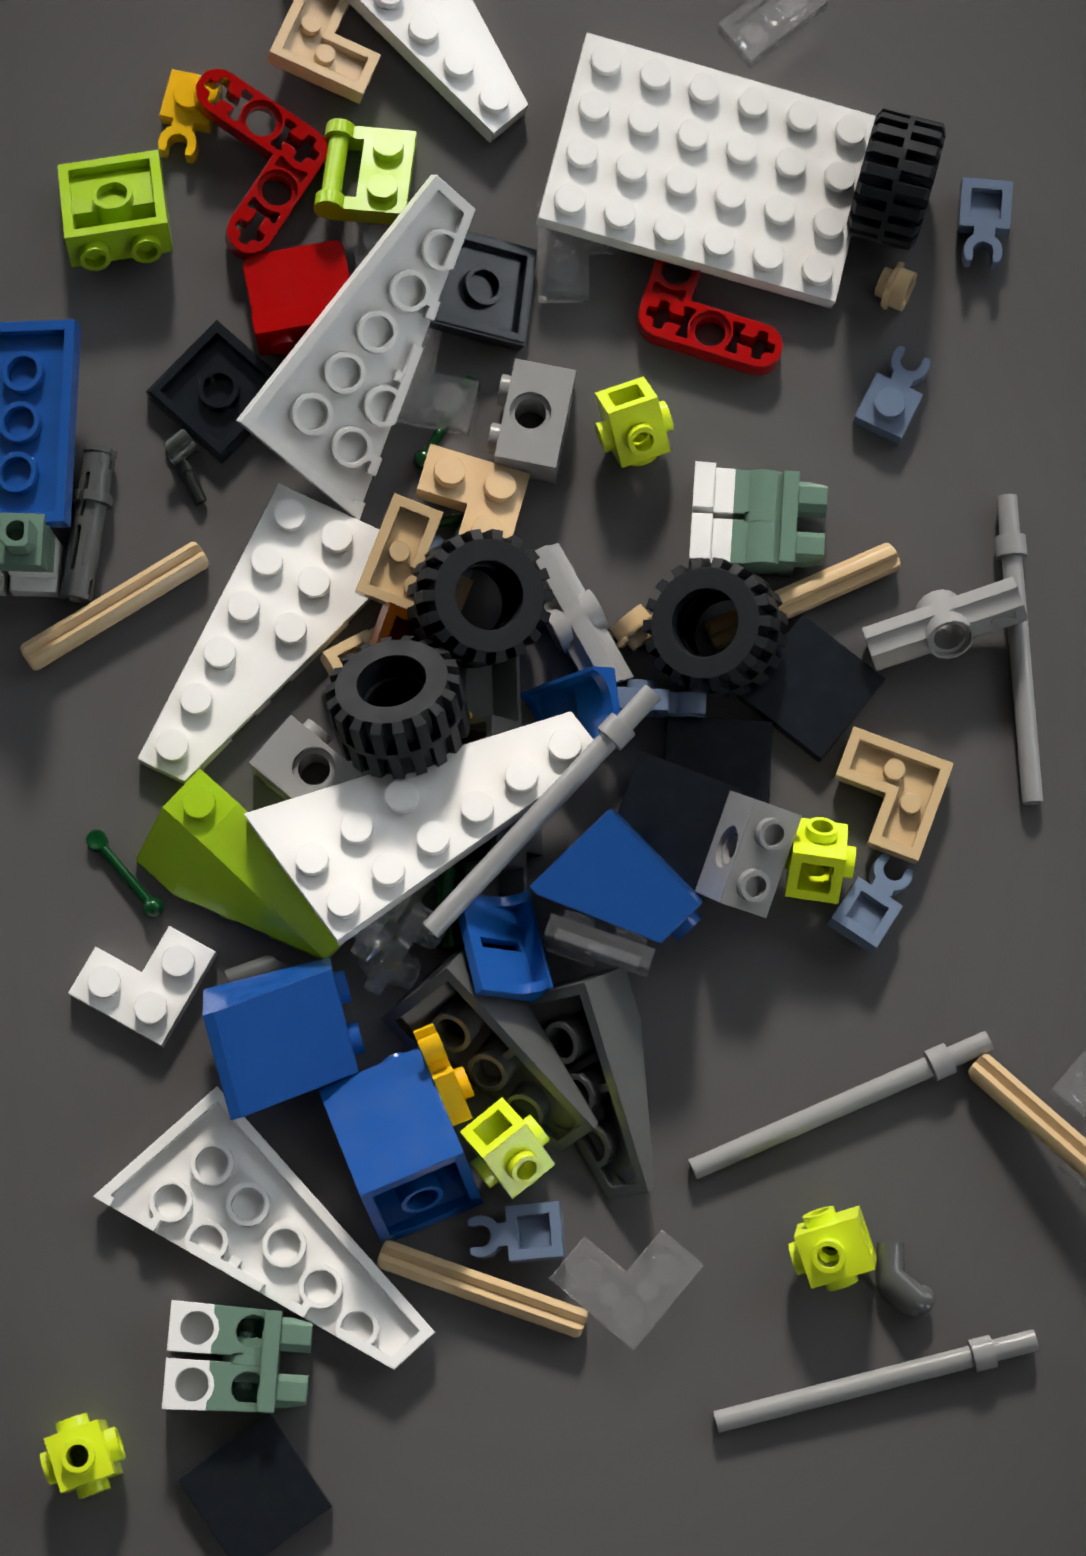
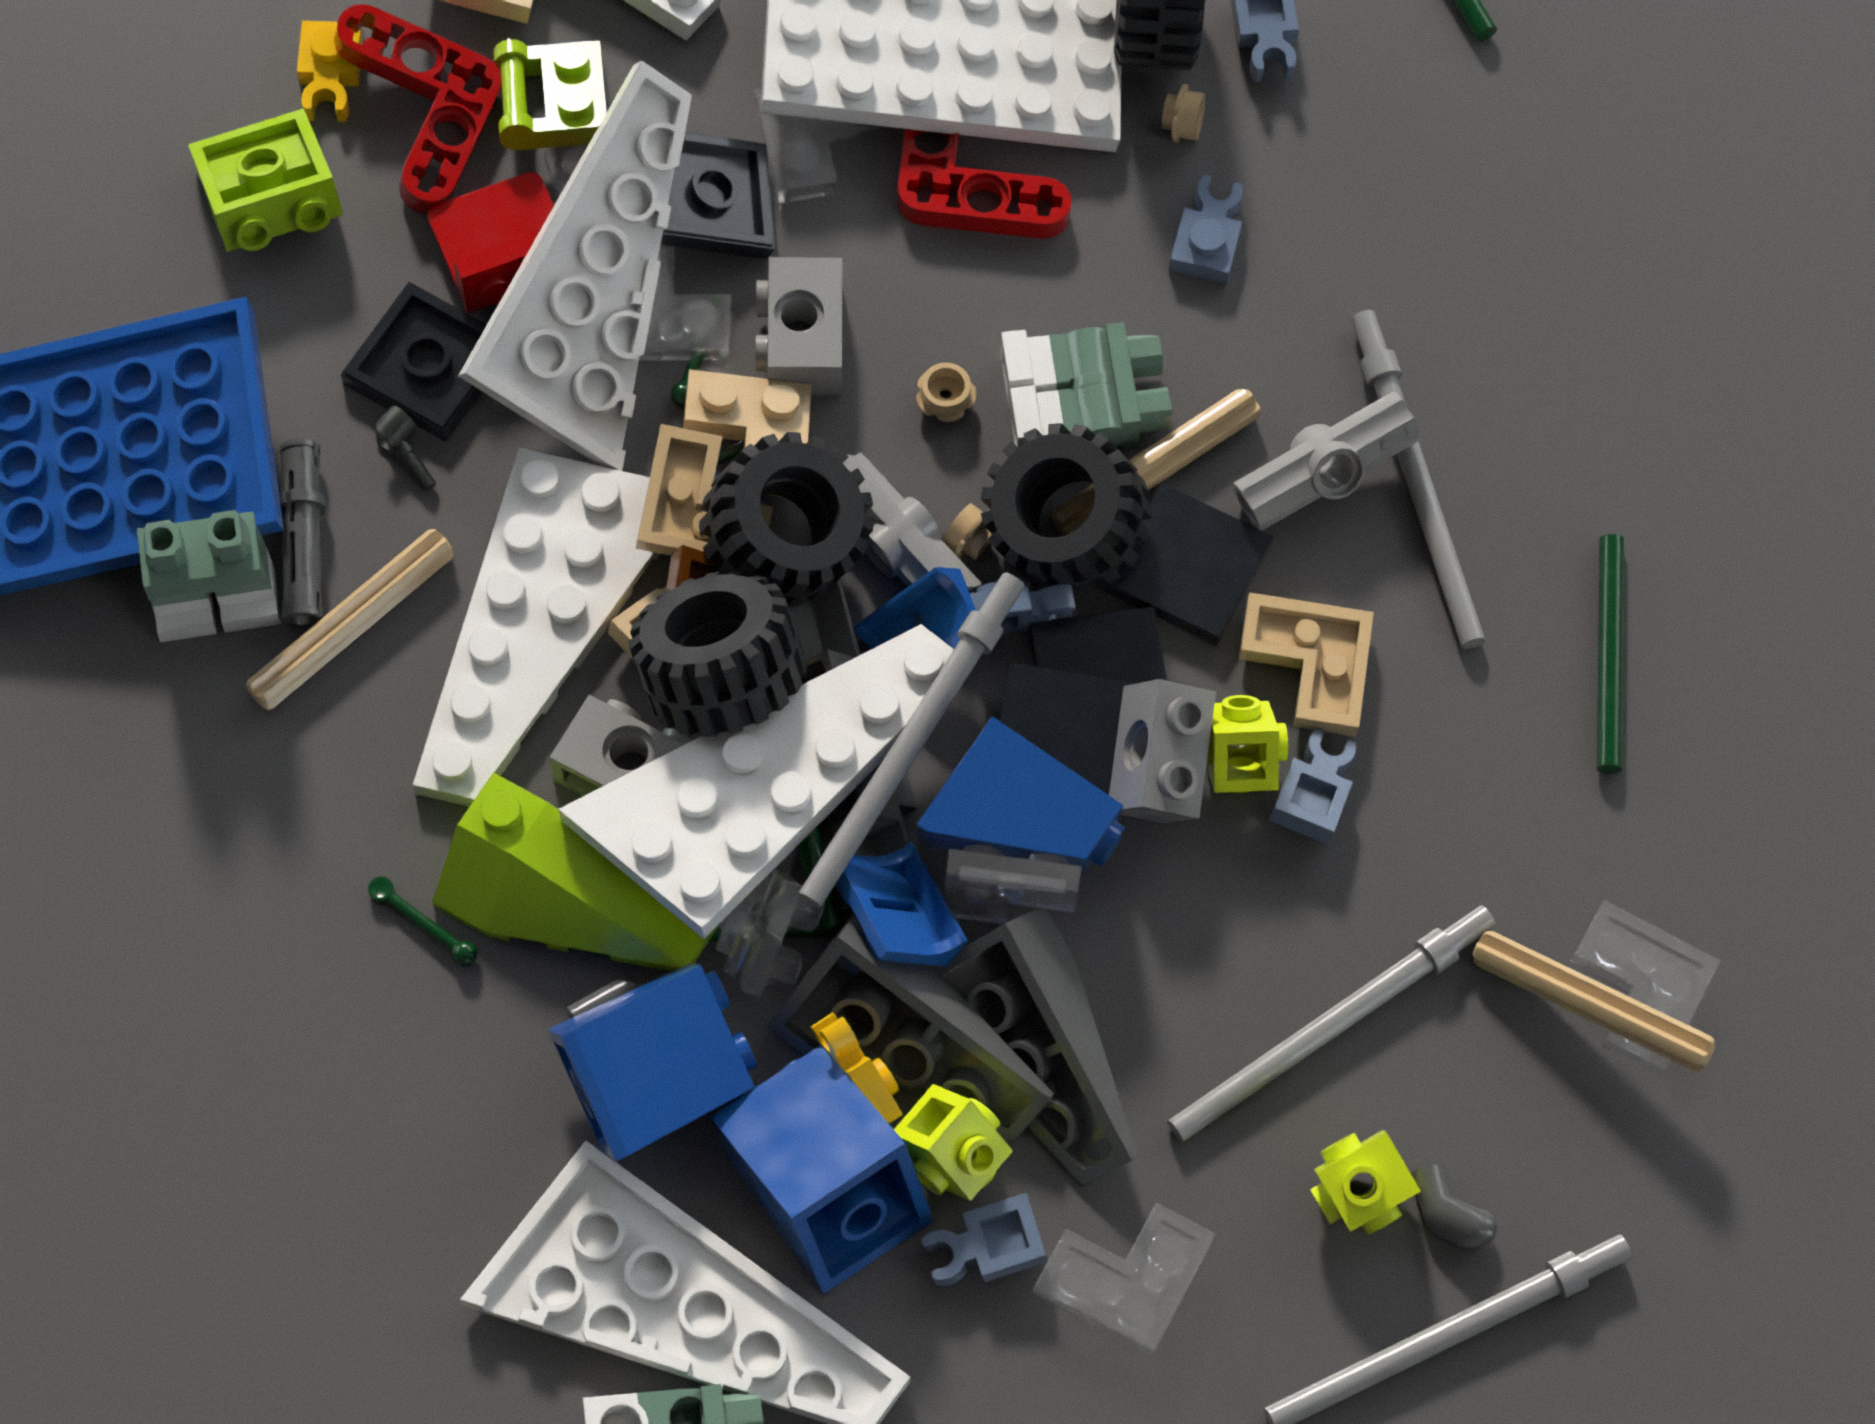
camera: 15 degrees left, 10 degrees down
(150, 999) = (479, 1061): white plate -> none
(482, 1288) = (956, 1318): tan axle -> none
(633, 423) = (920, 306): neon yellow brick -> none
(640, 487) = (950, 378): none -> tan plate

